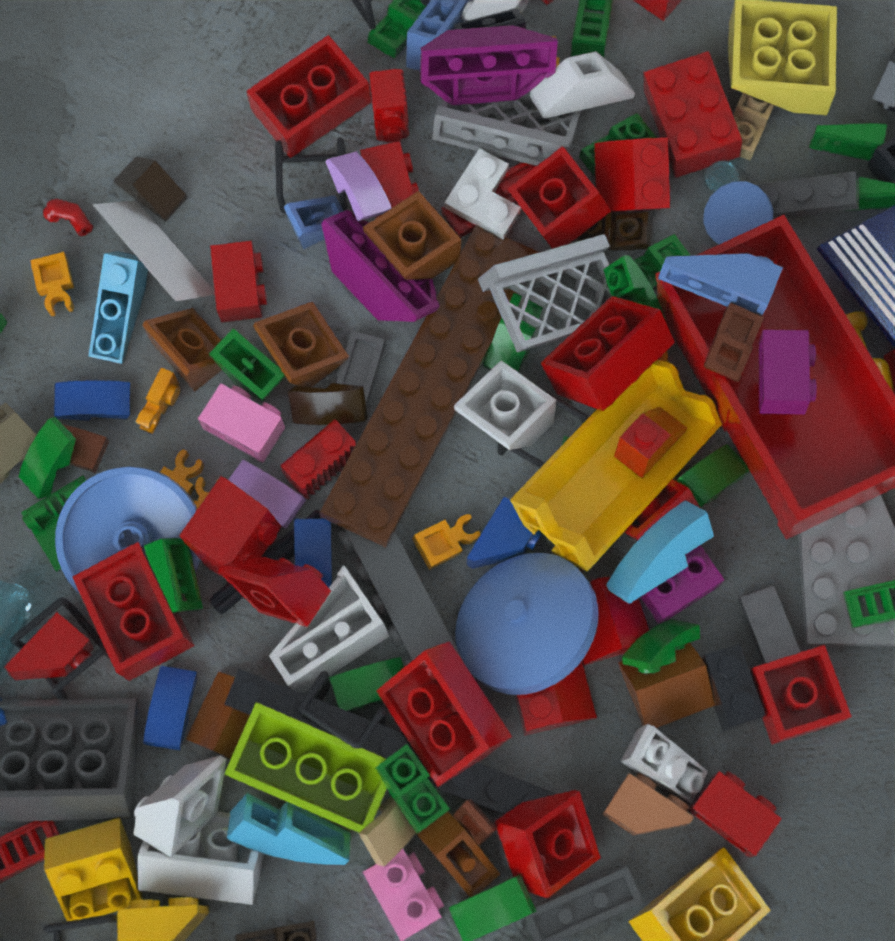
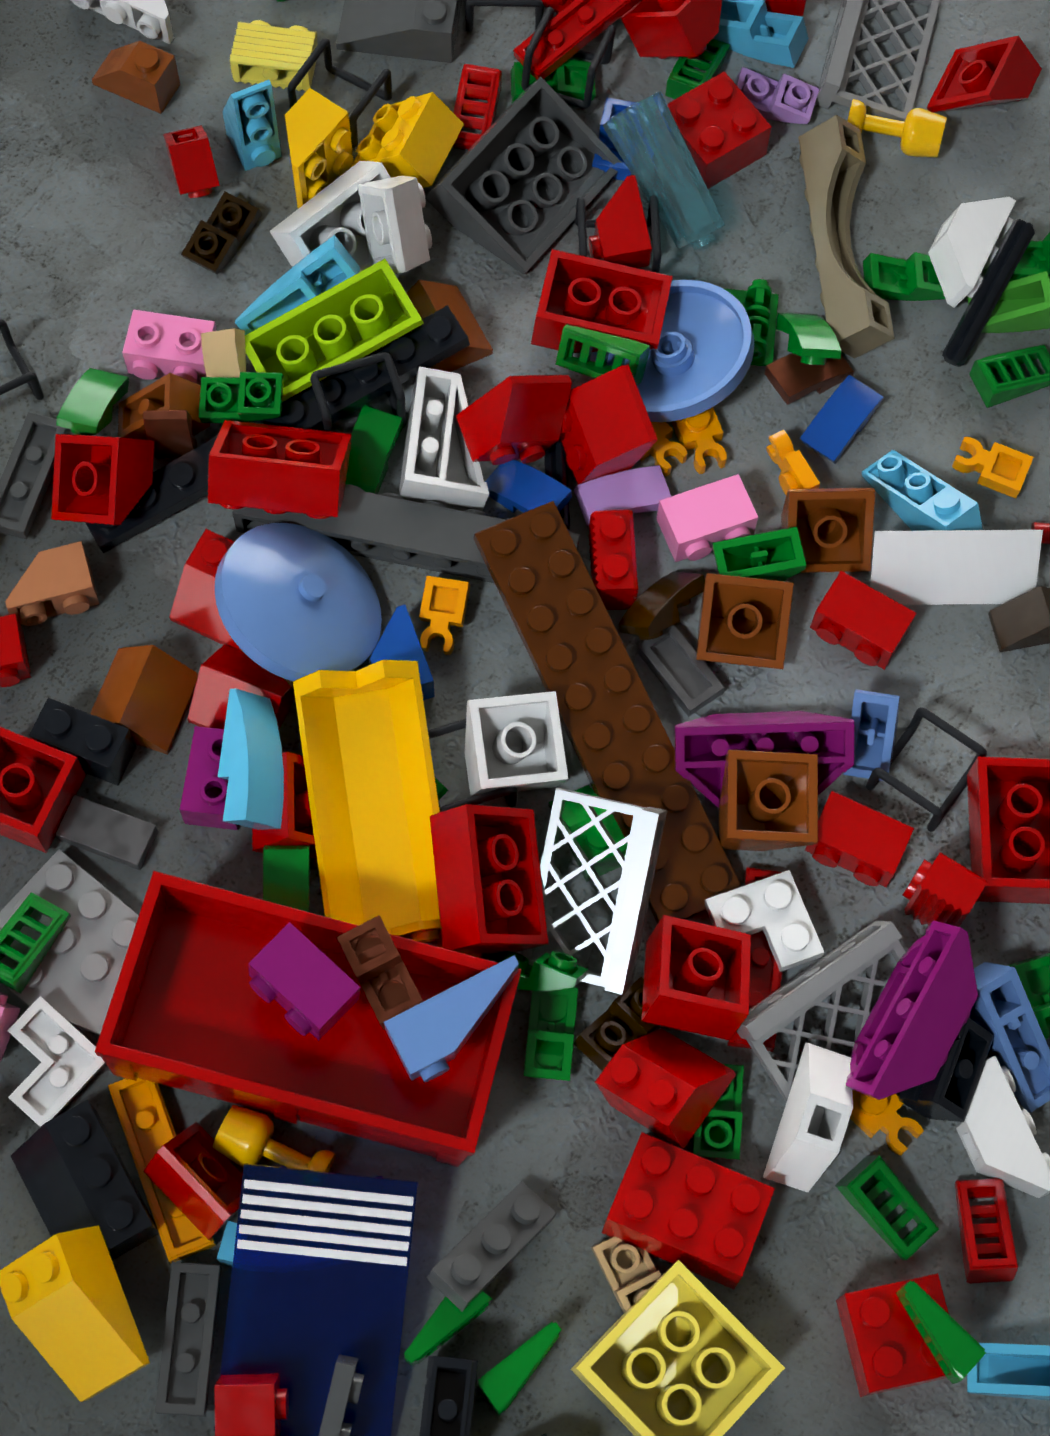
camera: 125 degrees right, 5 degrees down
(170, 708) = (494, 288): blue slope -> none
(361, 185) = (868, 785): lavender slope -> none
(648, 440) = (371, 857): red slope -> none
(659, 644) = (176, 695): green slope -> none
(664, 763) = (76, 627): white slope -> none
(720, 174) = (592, 1190): clear light blue plate -> none
(736, 210) = (532, 1159): medium blue tile -> none

